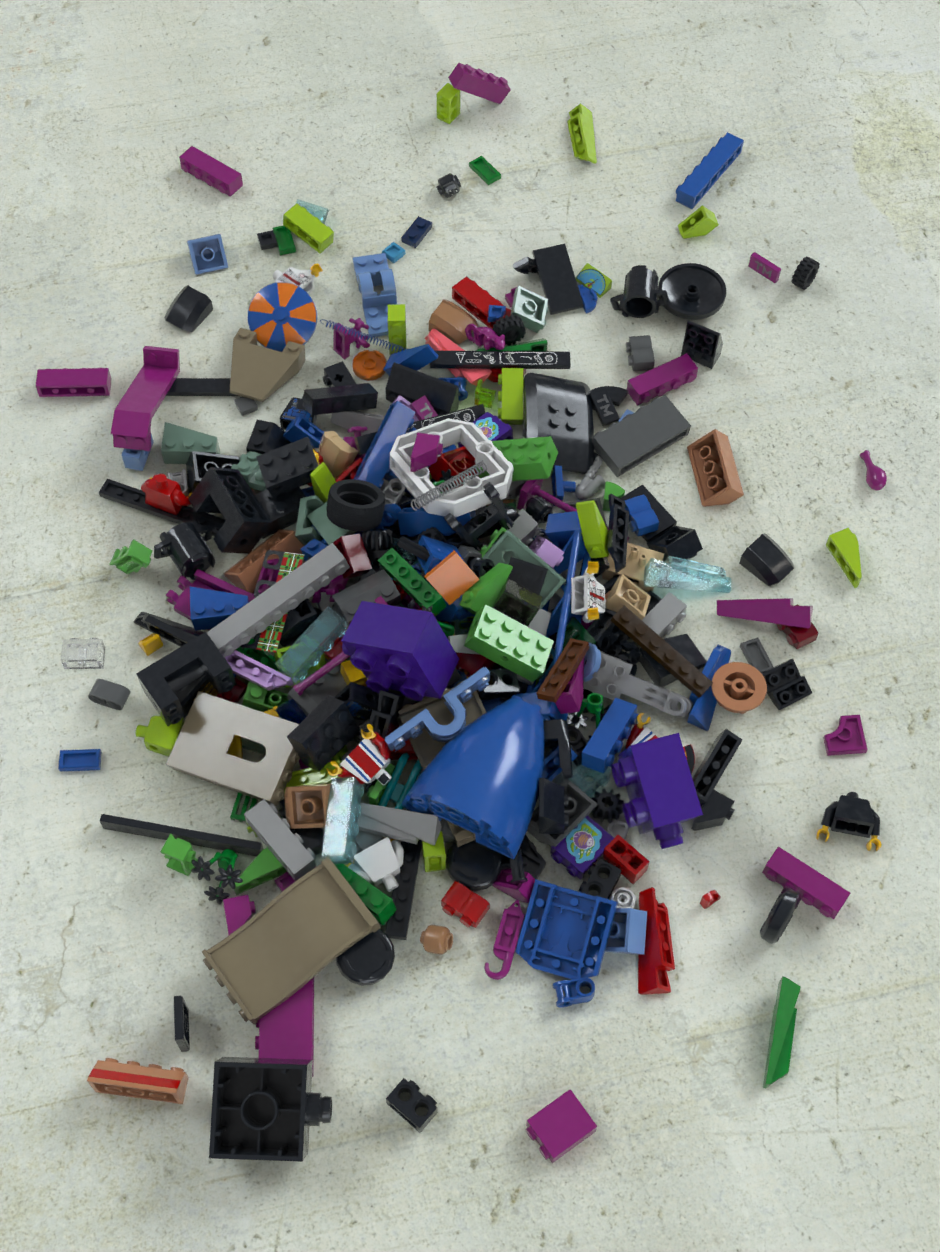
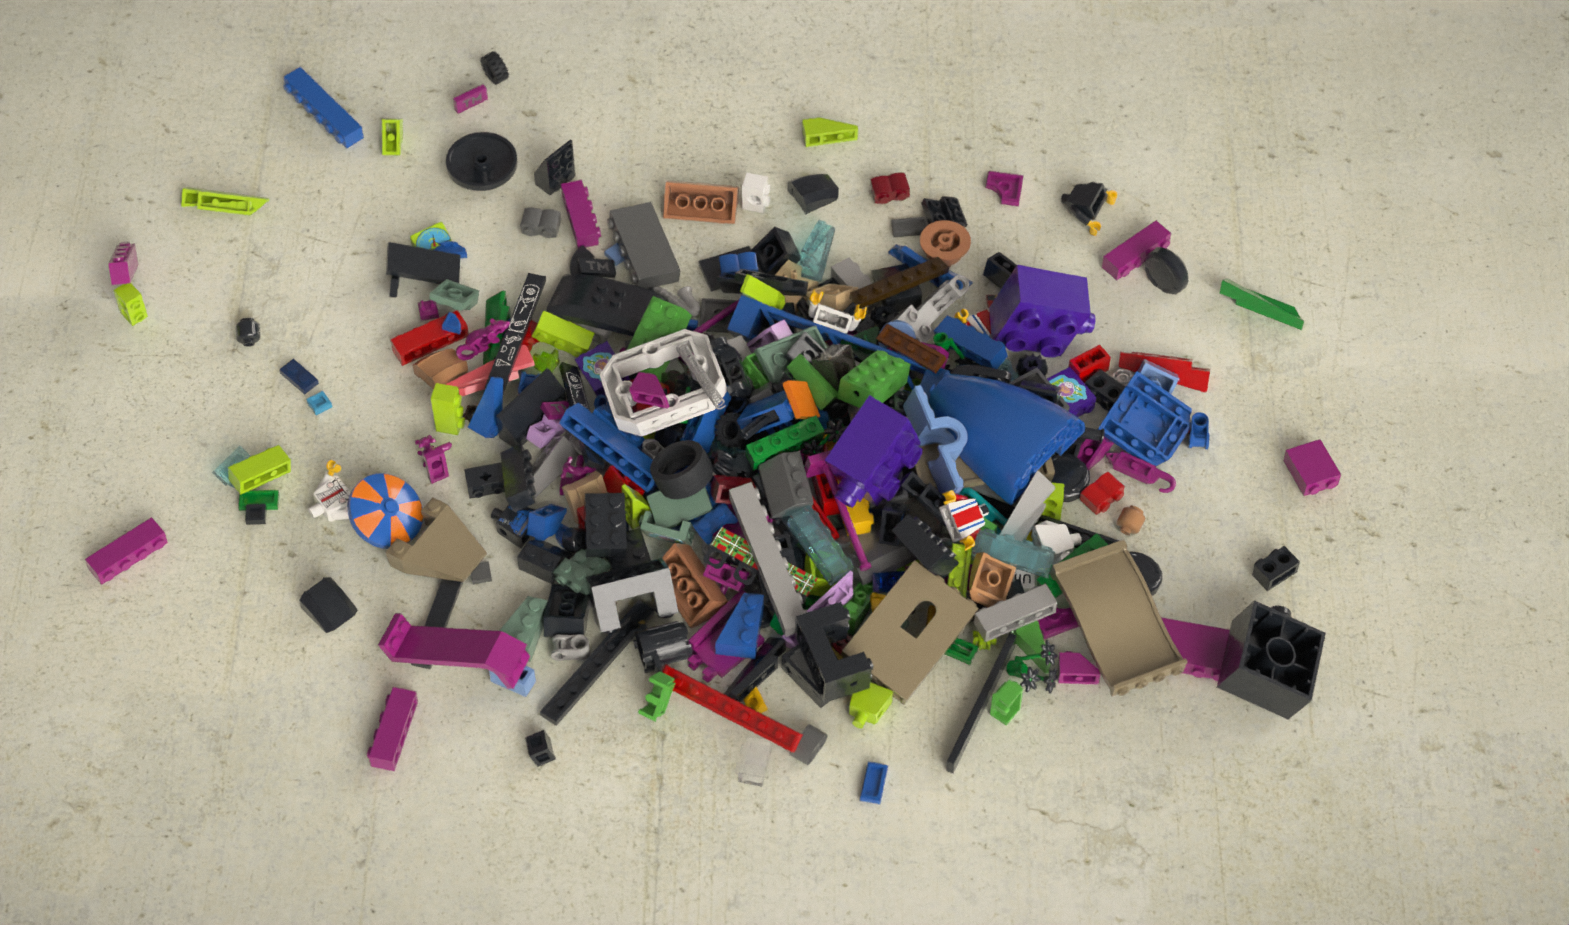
camera: 75 degrees left, 5 degrees down
(71, 487) = (540, 748): none -> black brick
(132, 621) = (734, 710): none -> red tile
(139, 1081) = (1217, 767): nougat slope -> none
(164, 494) = (585, 655): red torso -> none
(181, 1023) = (1173, 723): black tile -> none
(207, 254) = (252, 573): medium blue slope -> none
(362, 335) = (456, 433): blue piece -> none
(369, 365) = (467, 453): orange tile -> none
(370, 272) = (347, 426): medium blue piece -> none
(484, 170) = (234, 298): green tile -> none
(511, 327) = (475, 316): black tyre -> none
(611, 488) = (706, 285): bright green tile -> none
(618, 827) = (1055, 366): light grey tile -> none
(640, 294) = (471, 201): black container -> none
(709, 899) = (1135, 320): red tile -> none
(737, 507) = (755, 193): none -> white brick
(767, 610) = (871, 200): magenta wedge -> none
(875, 476) = (747, 88): magenta piece -> none

